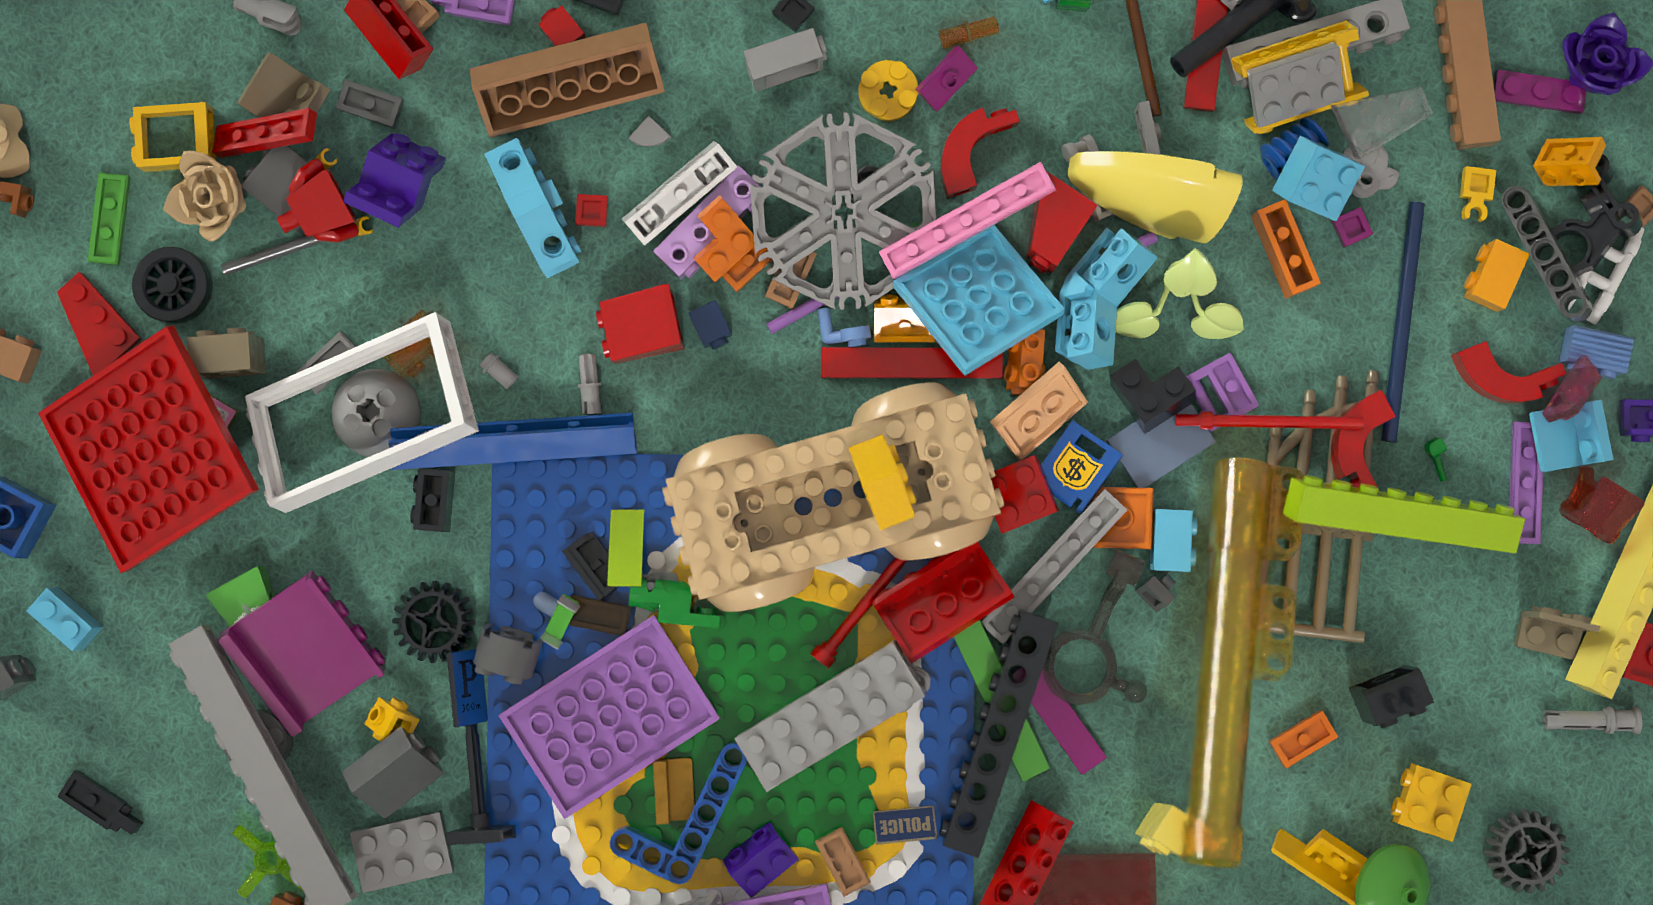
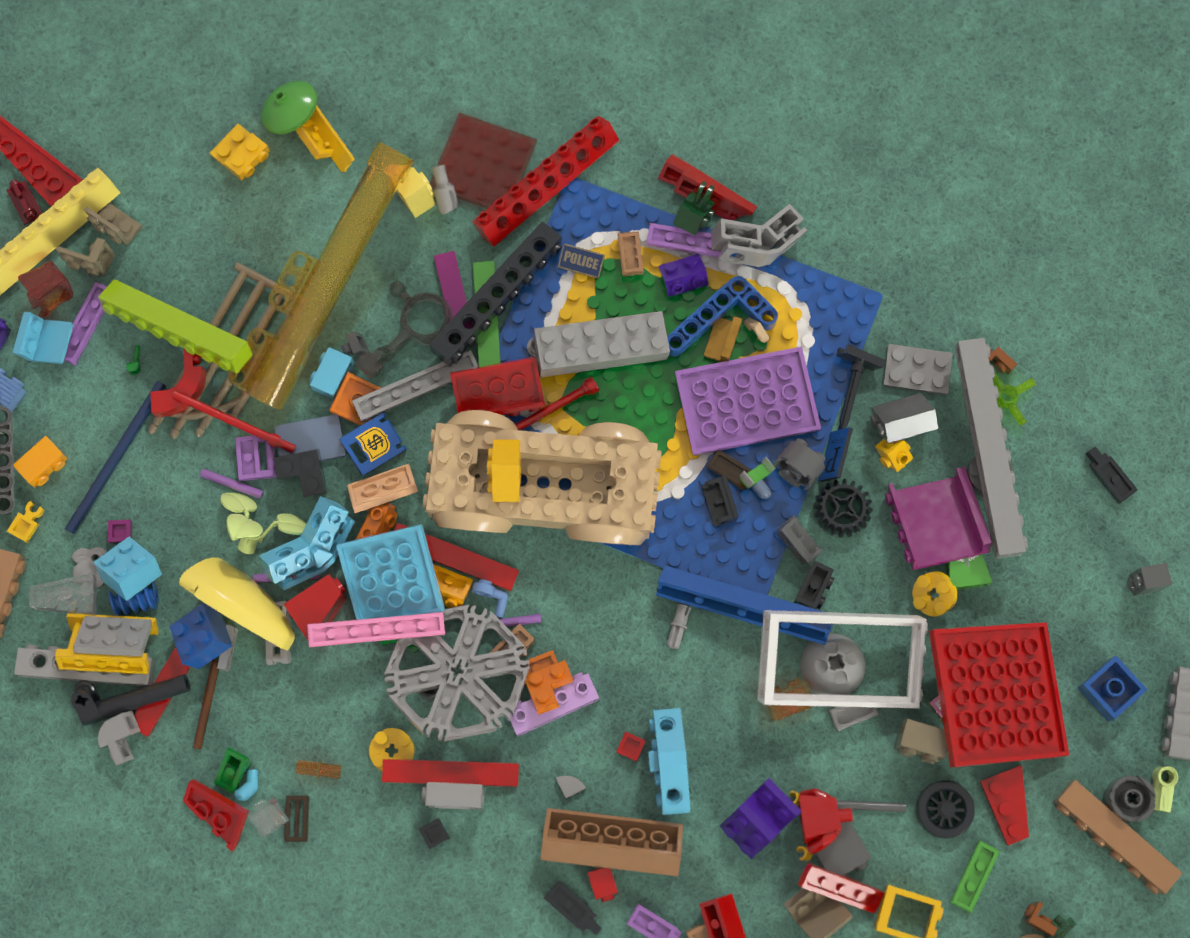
camera: 160 degrees left, 10 degrees down
(64, 619) = (1094, 605): medium azure brick -> none
(206, 196) = (897, 860): tan brick -> none
(280, 536) = (923, 600): none -> yellow plate
(369, 104) = (759, 885): dark grey plate -> none
(474, 555) = (798, 540): none -> dark grey hinge
(498, 370) = (737, 660): light grey pin -> none
(625, 548) = (694, 504): lime sticker -> none
(632, 821) = (758, 329): none -> tan tile
(640, 324) = (627, 651): red slope -> none
(672, 600) = (676, 458): green plate -> none
(679, 192) = (565, 732): white brick -> none
(710, 325) = (579, 633): dark blue brick -> none
(803, 89) = (450, 772): none -> red tile
(946, 78) = (348, 742): magenta plate -> none
(955, 160) = (362, 687): red arch -> none
(1023, 493) = (414, 440): red plate -> none
(1130, 852) = (444, 191): none -> light grey arm
(1187, 126) = (200, 636): none -> blue brick
(1237, 346) = (231, 483): none -> medium lavender bar
(1285, 249) = (171, 532): orange brick -> none
(1303, 739) = (303, 219): orange plate -> none
(1392, 696) = (235, 221): black hinge -> none
(1490, 381) = (80, 401): red arch -> none
(1502, 858) = (178, 97): dark grey gear -> none
(1548, 571) = (96, 264): none -> dark tan bracket
(1573, 391) = (28, 364): clear pink bracket -> none
(1606, 720) = (107, 159): light grey pin -> none

